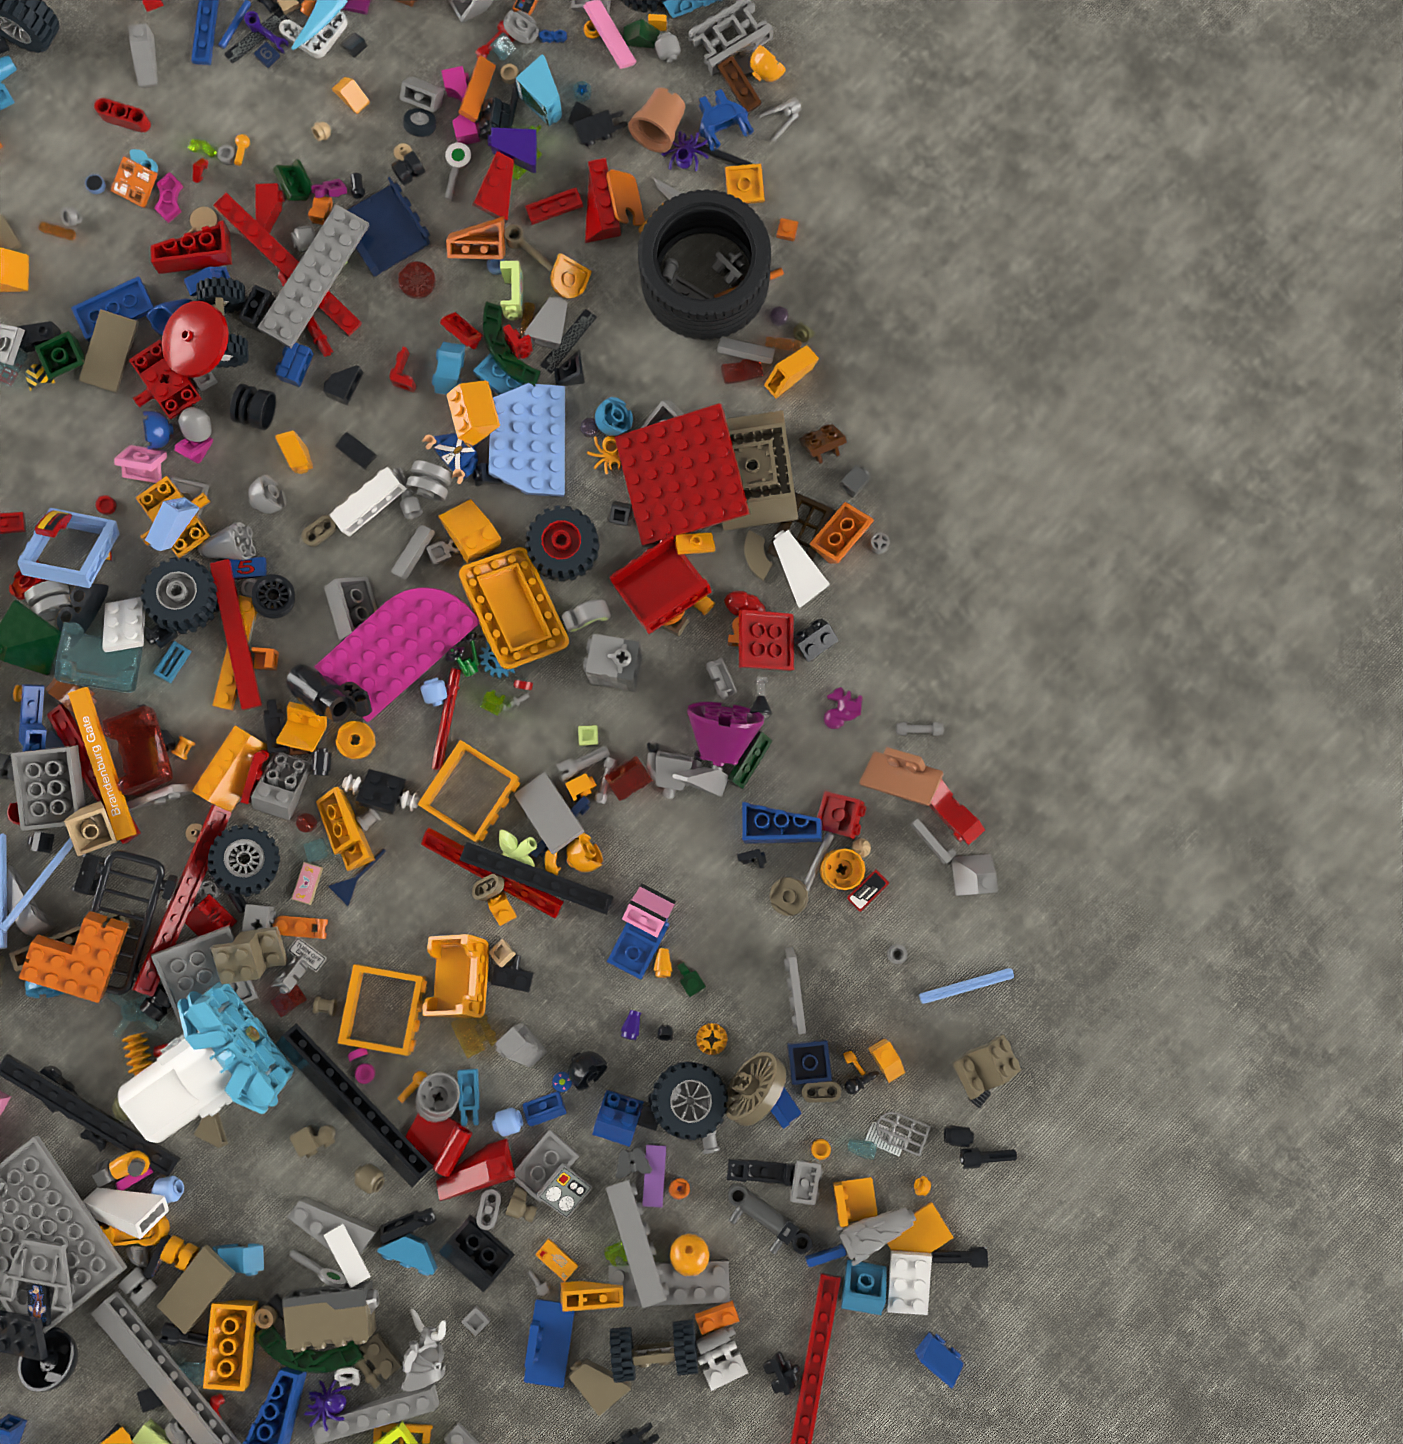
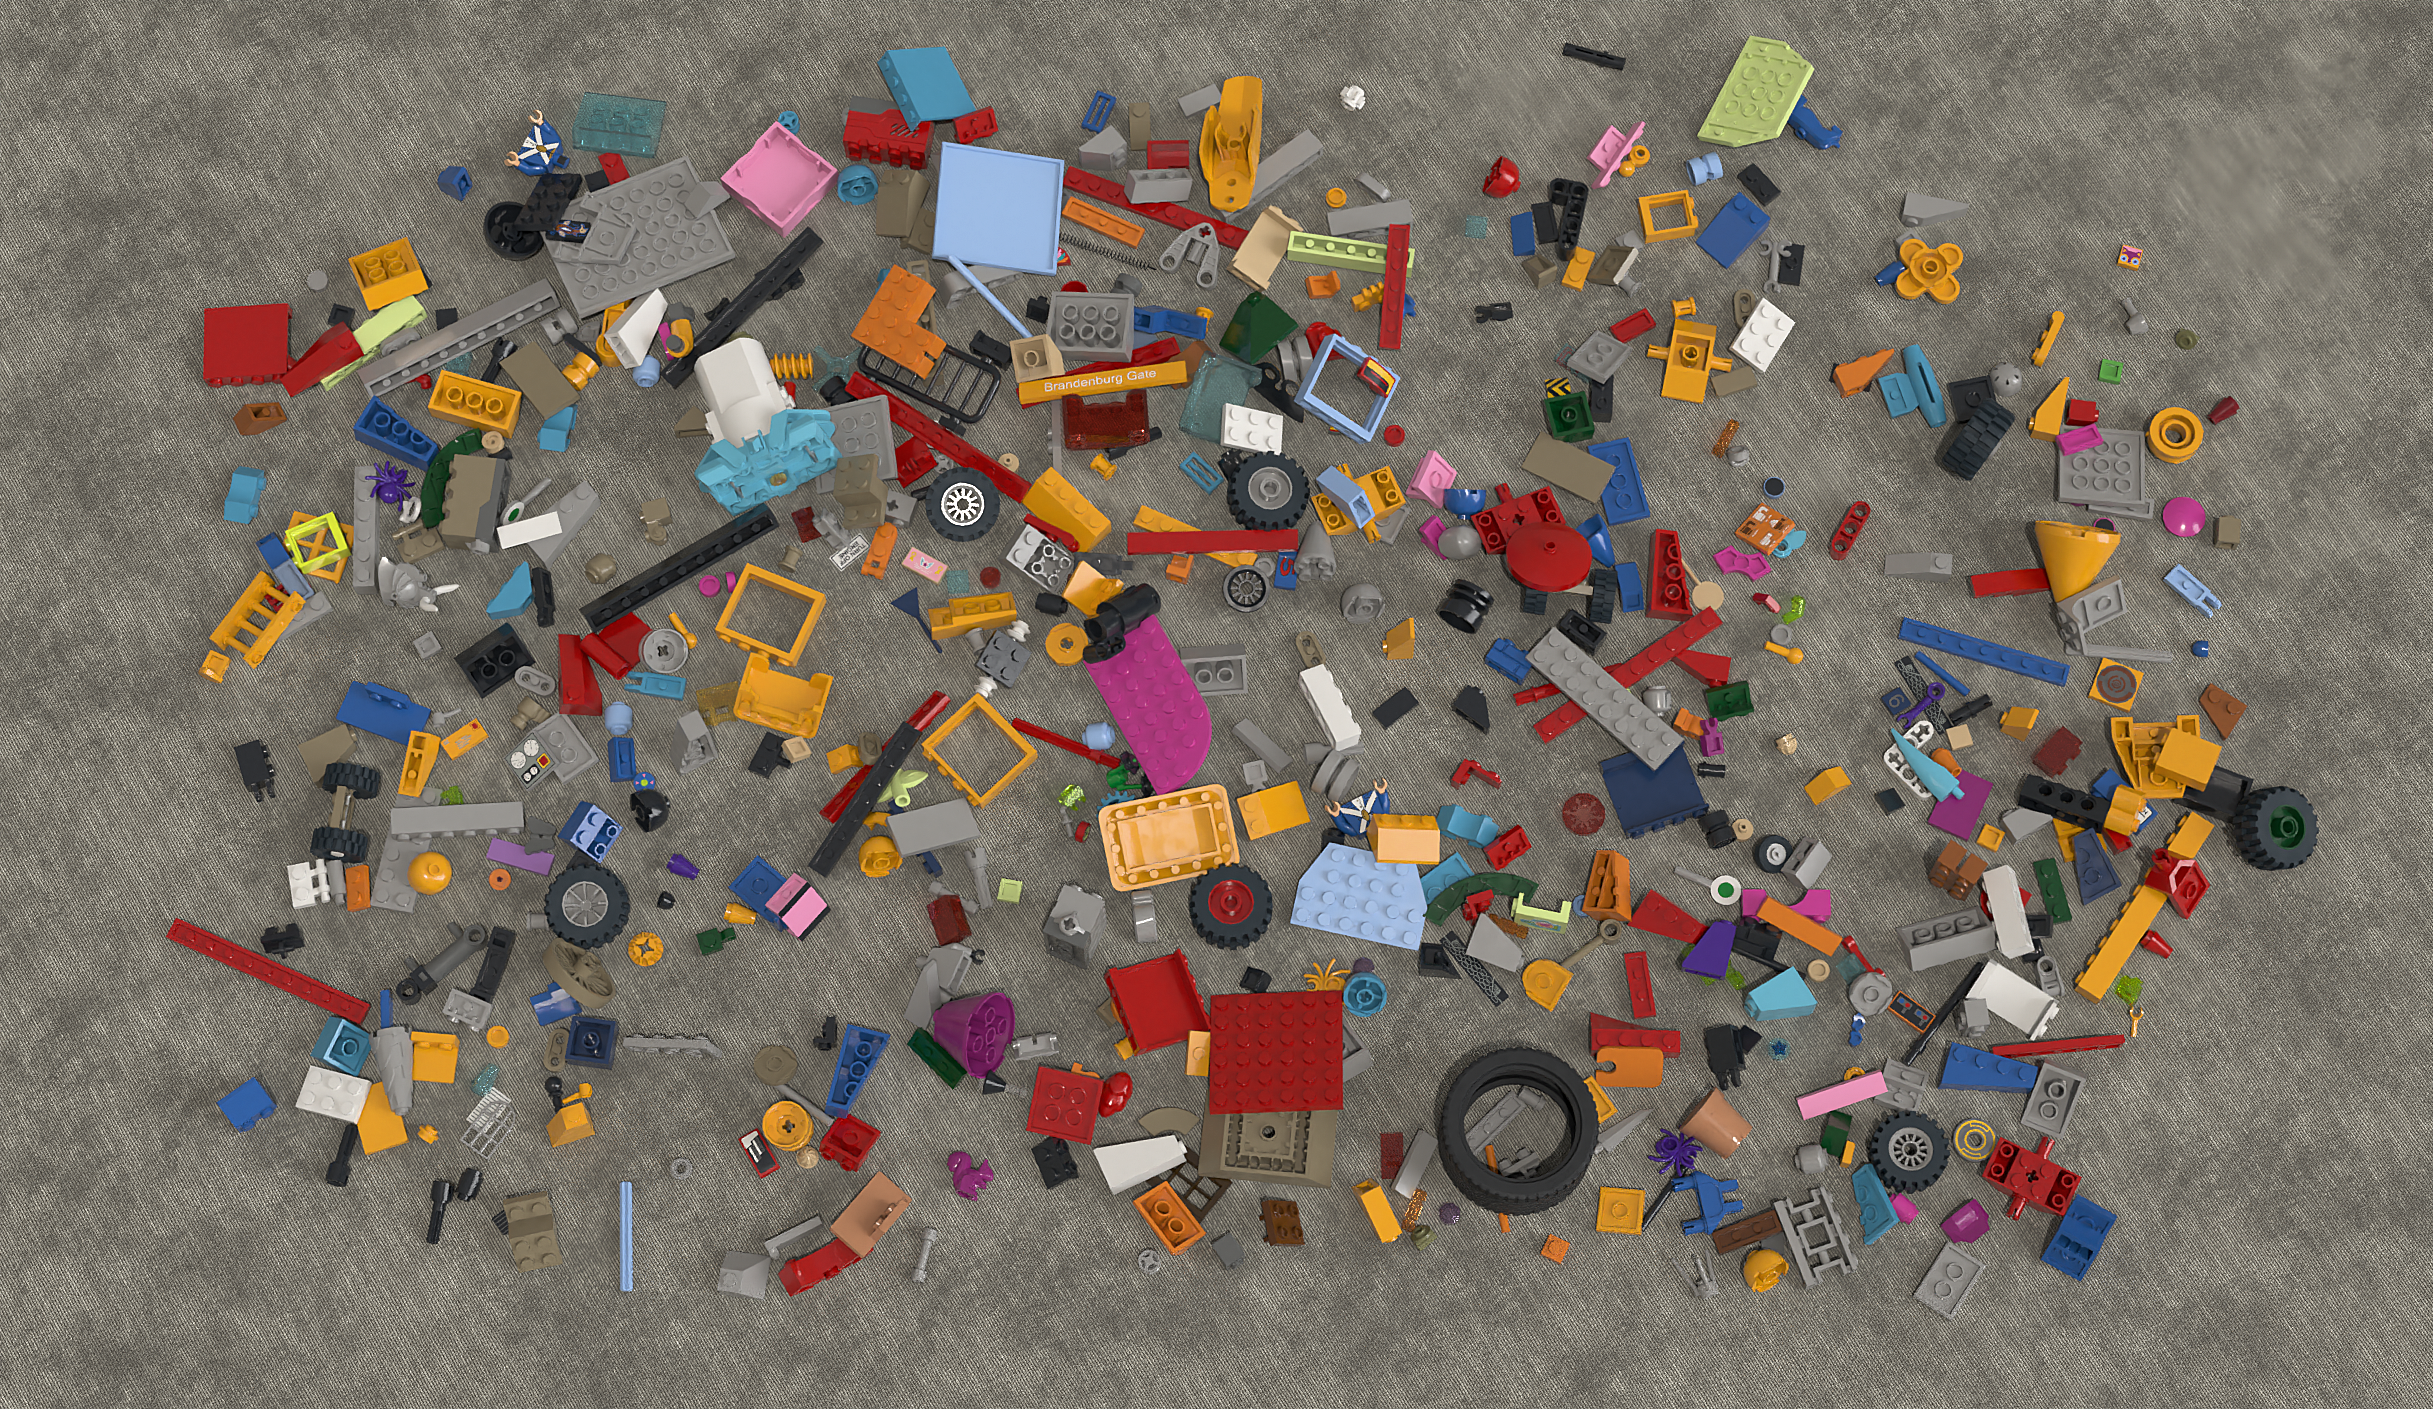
camera: 105 degrees right, 10 degrees down
(581, 786) = (954, 869): light orange brick -> none

